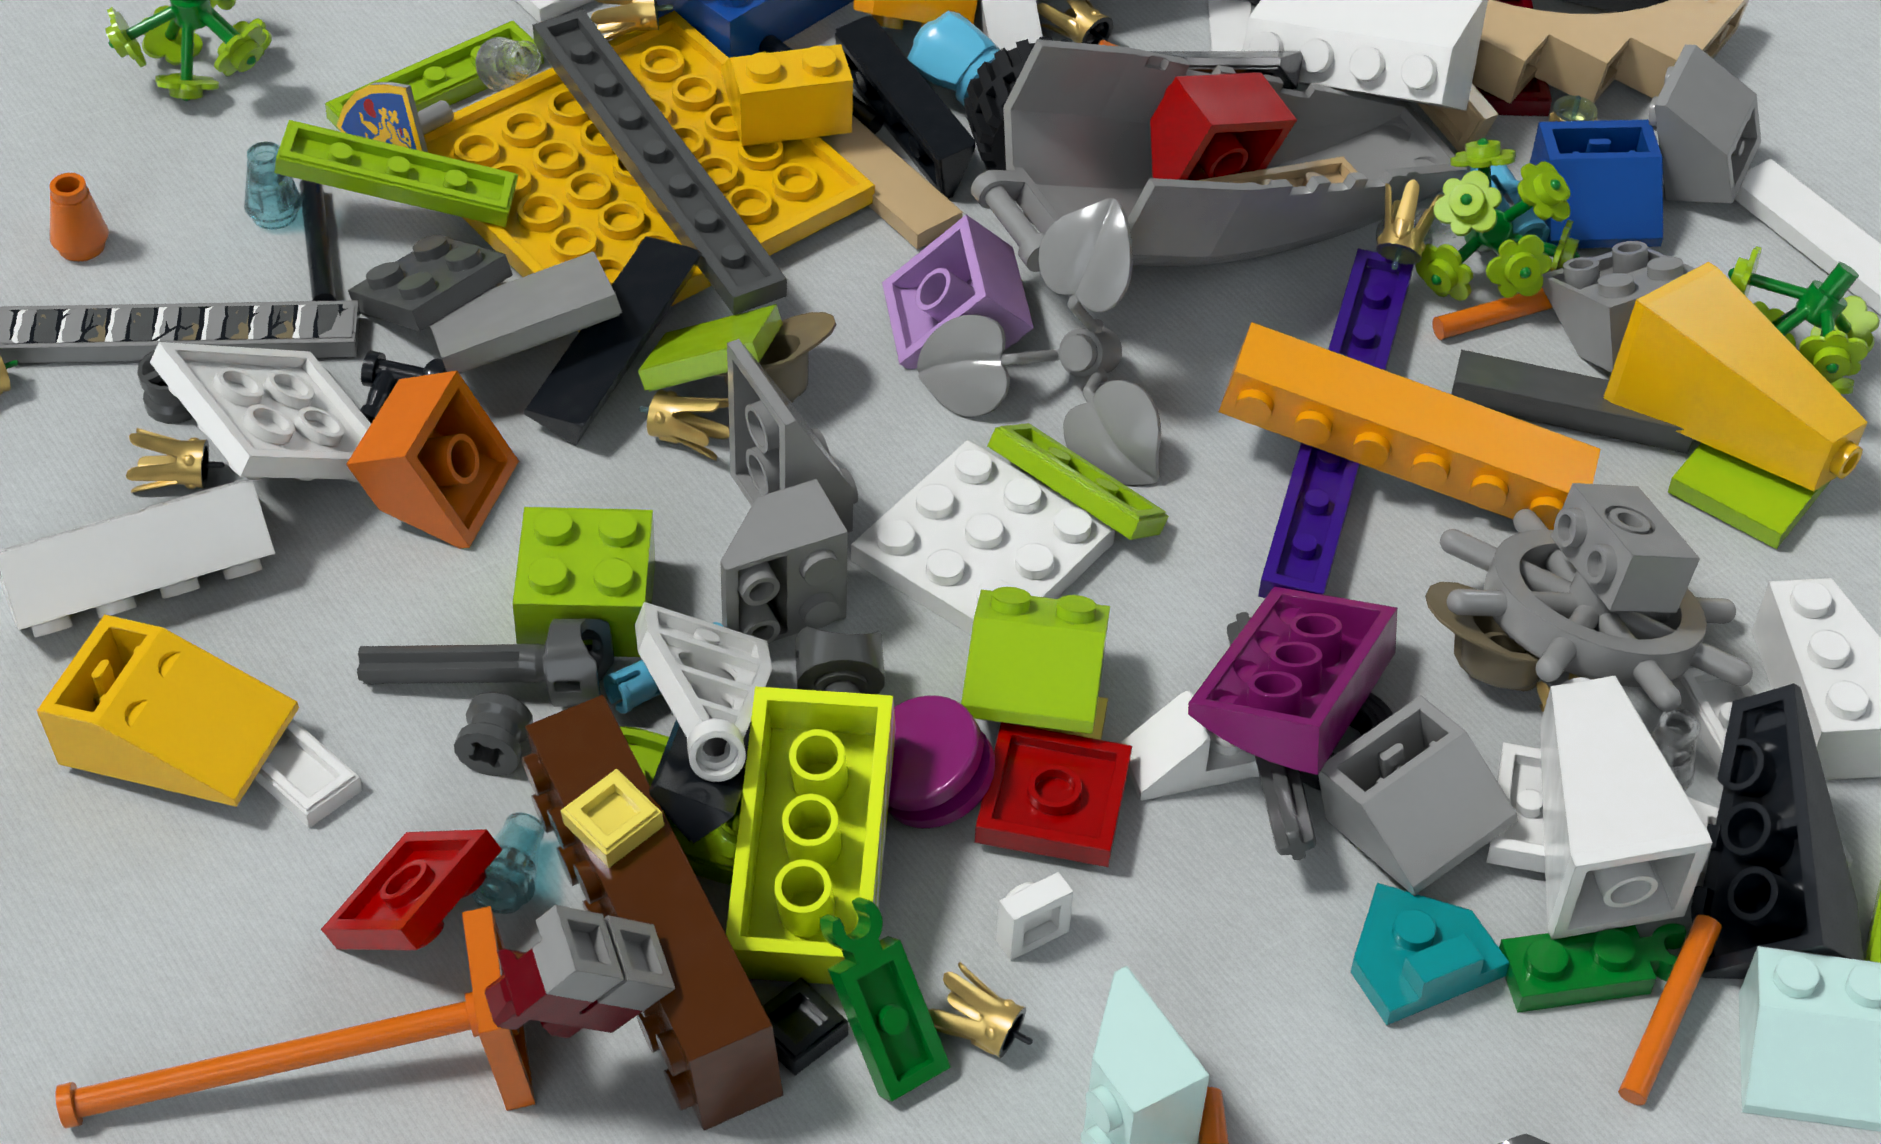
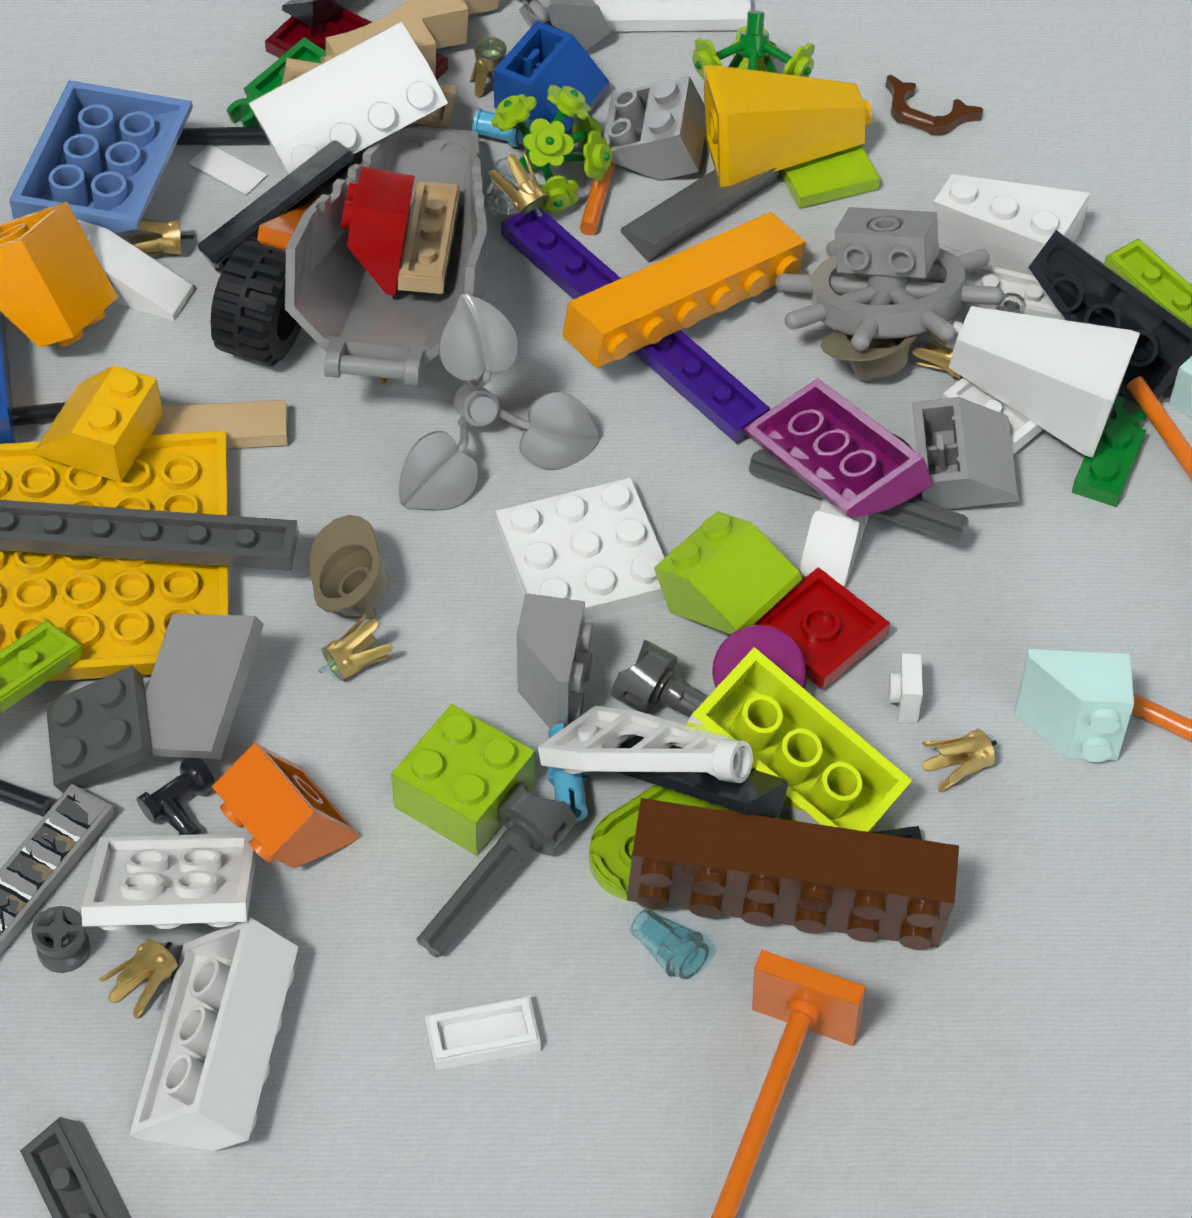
camera: 55 degrees left, 5 degrees up
(162, 713) = (404, 1081): yellow slope -> none
(413, 890) = (668, 1004): red plate -> none
(493, 734) = (556, 898): dark grey wheel -> none
(580, 974) = (872, 930): light grey hips -> none
(607, 349) = (275, 680): black slope -> none
(612, 818) = (749, 843): light yellow tile -> none
(702, 348) = (316, 597): lime tile -> none
(774, 443) = (457, 611): light grey slope -> none
(884, 1004) = (941, 792): green plate -> none
(907, 103) = (180, 371): black slope -> none
(951, 52) = (152, 317): medium azure piece -> none
(952, 277) = (365, 447): lavender slope -> none
(1078, 480) = (577, 474): lime tile -> none
(1421, 953) = (1052, 524): teal plate -> none

